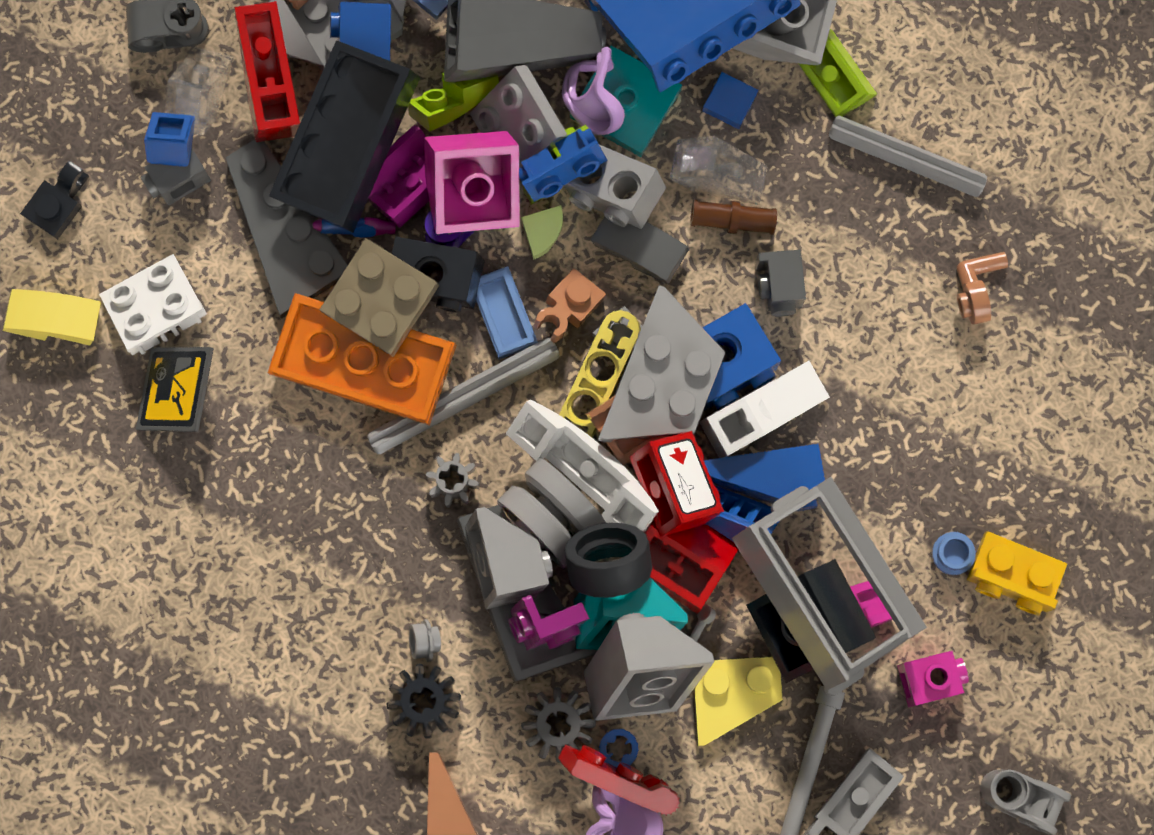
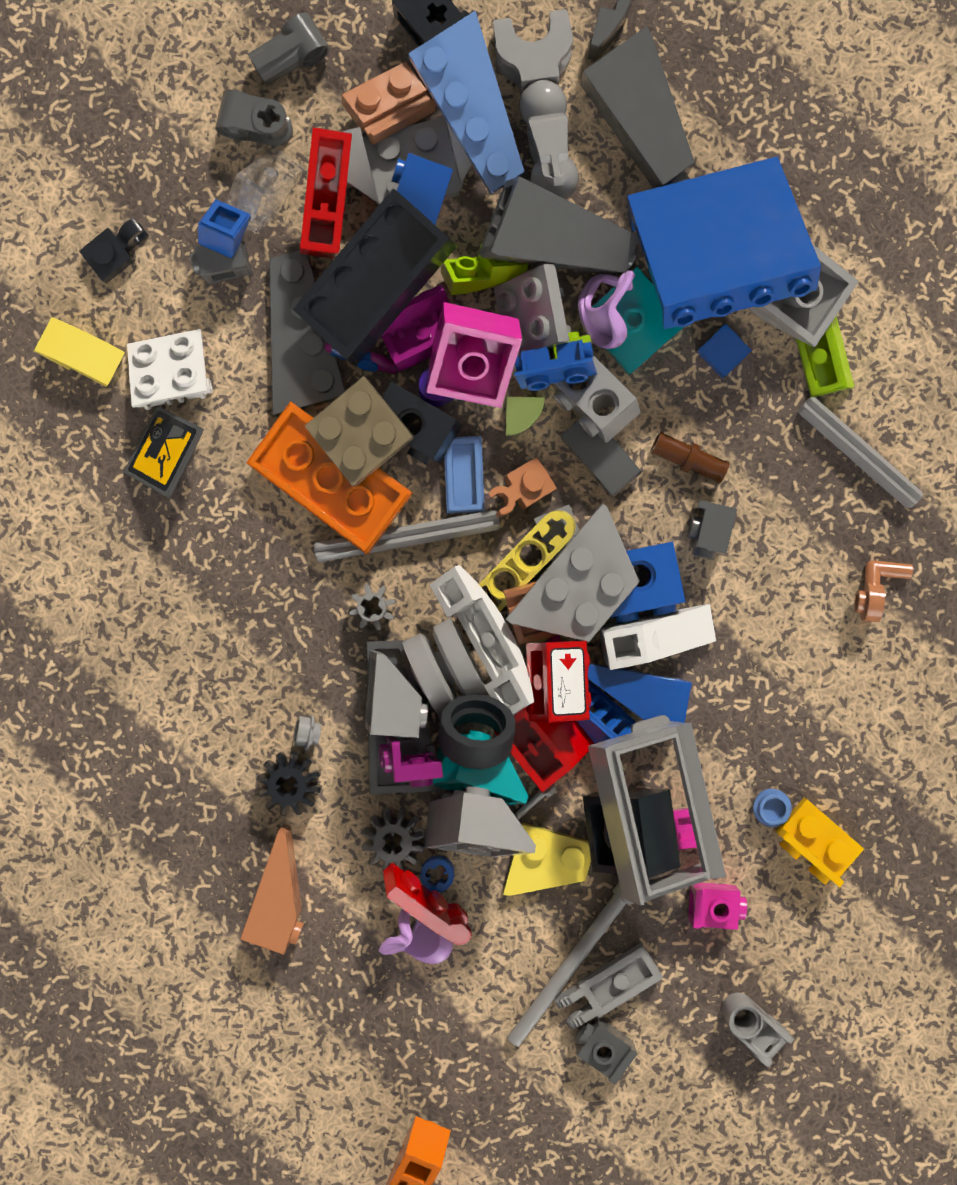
camera: 20 degrees right, 10 degrees up
(718, 170) = (691, 411): clear slope -> none

